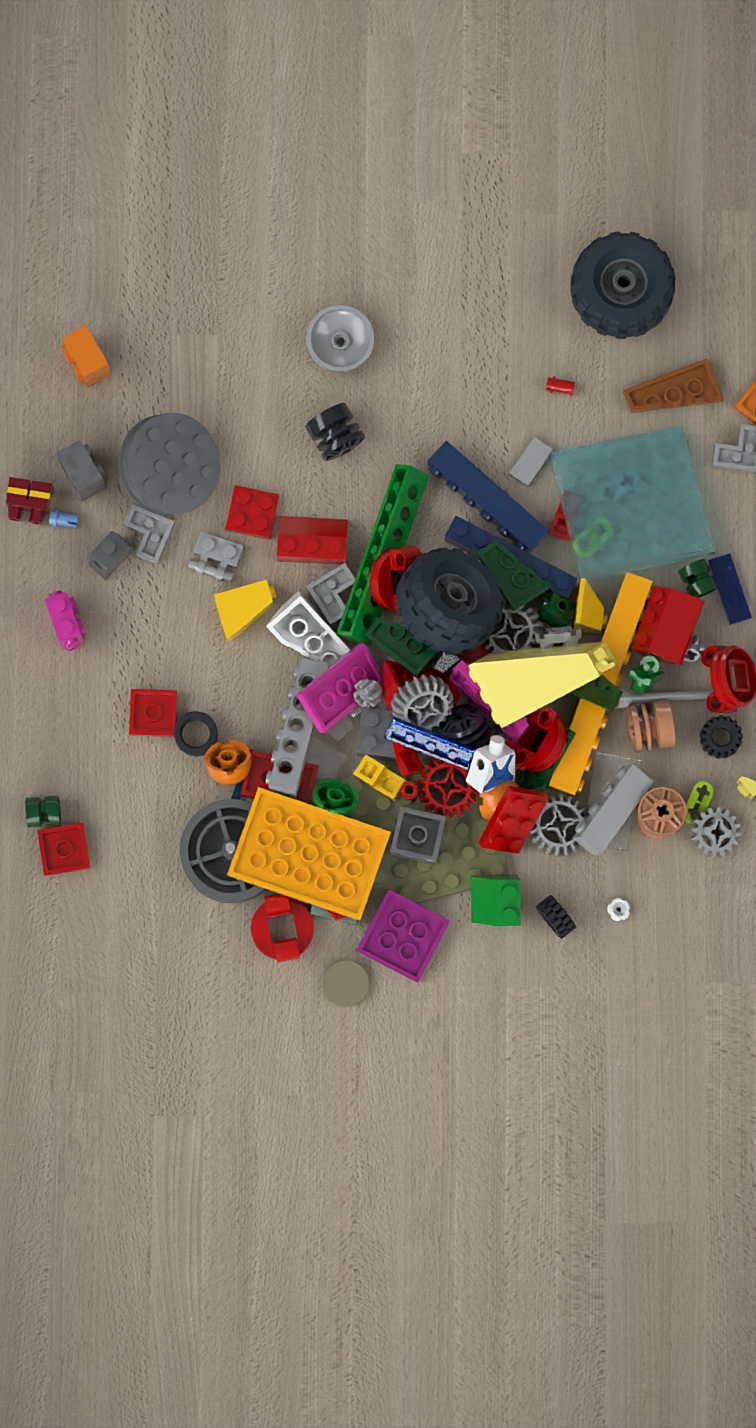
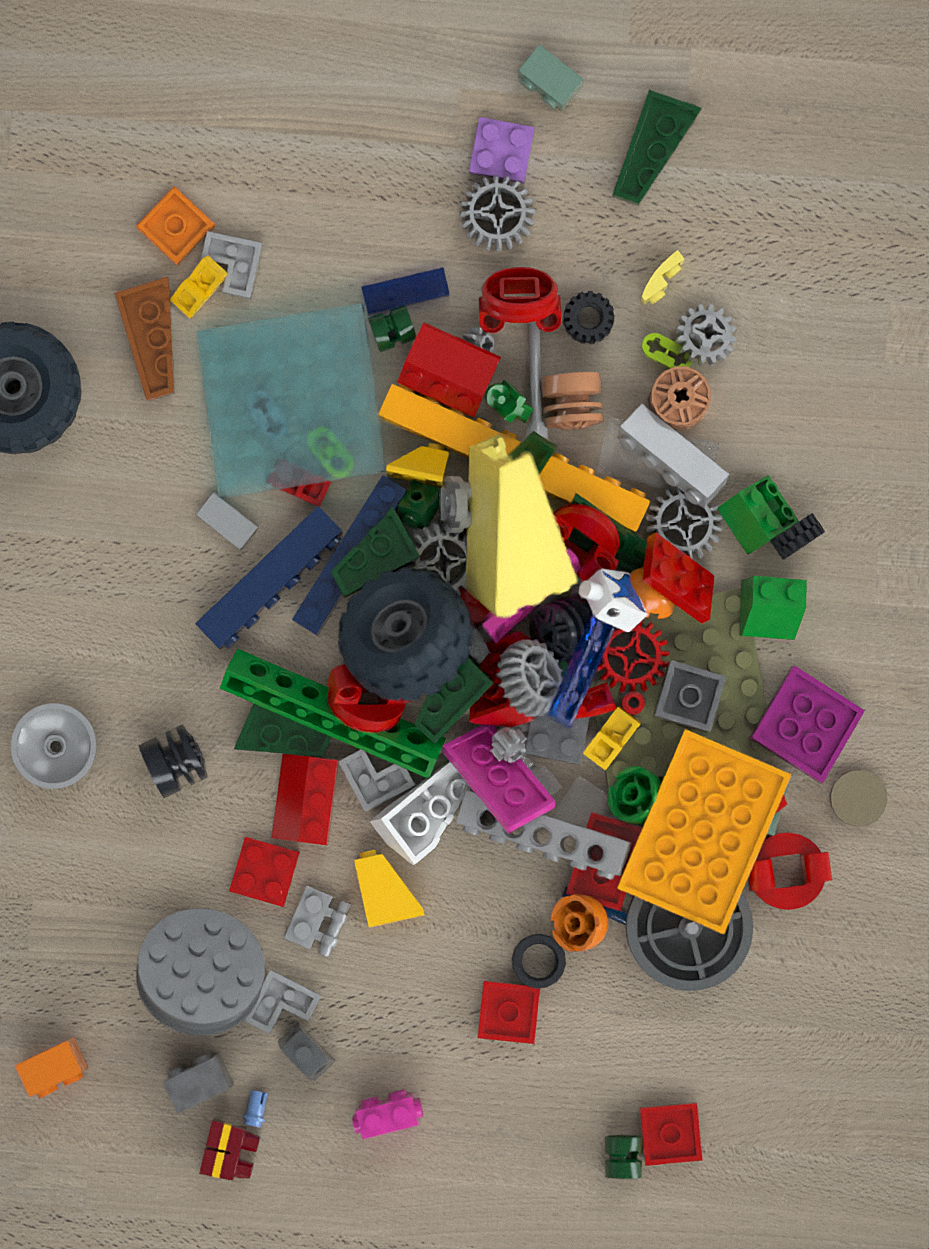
camera: 80 degrees left, 5 degrees up
(363, 510) = (277, 734): none -> dark green wing
(560, 386) = (134, 477): red pin -> none
(572, 883) = (757, 514): none -> green slope
(618, 903) = (796, 454): white plate -> none
(717, 424) = (199, 286): none -> yellow slope

